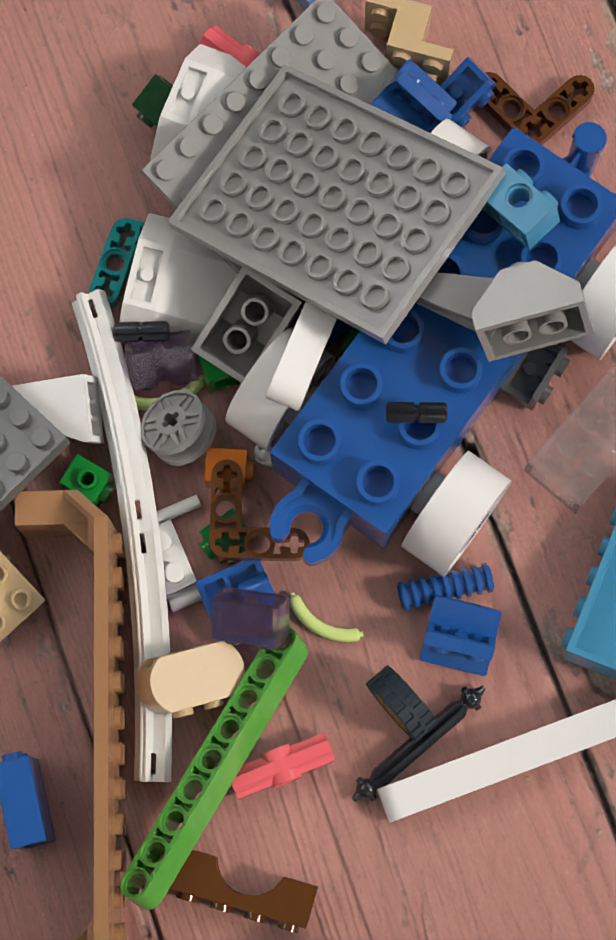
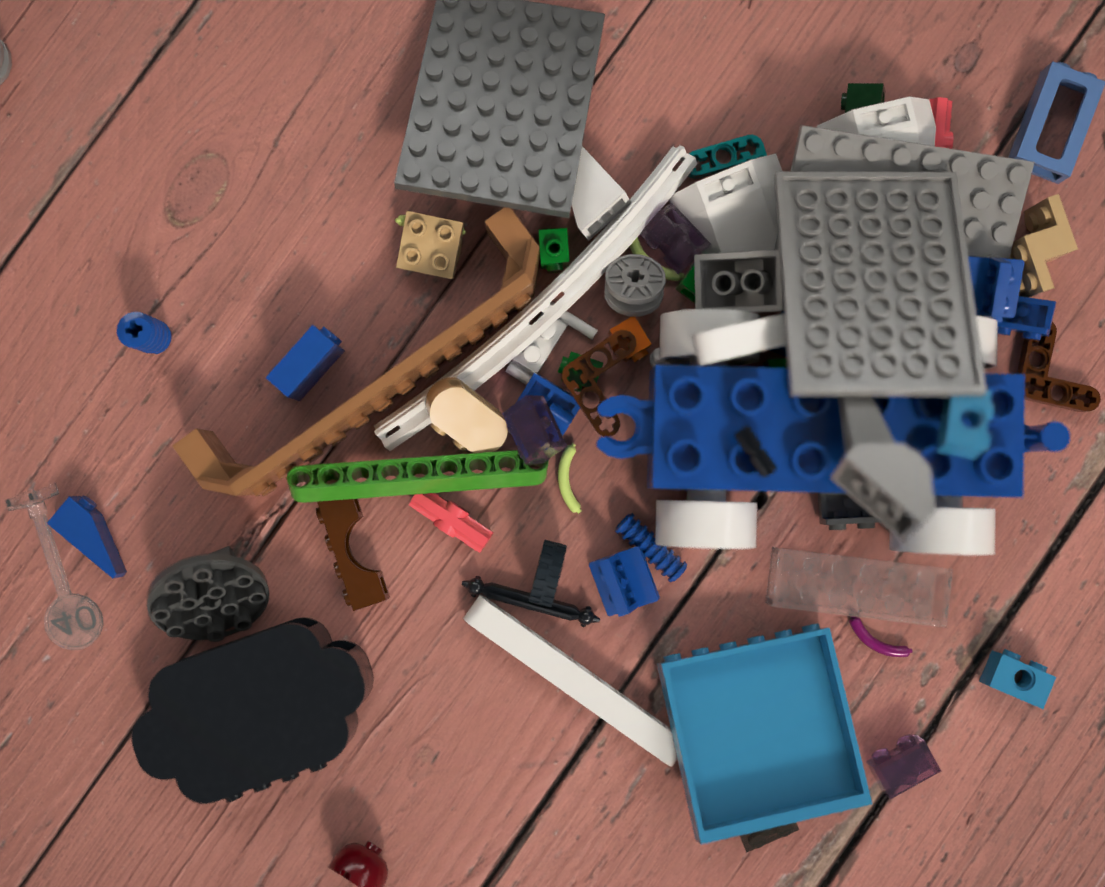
camera: 50 degrees right, 10 degrees up
(134, 331) = (681, 205): black piece -> none

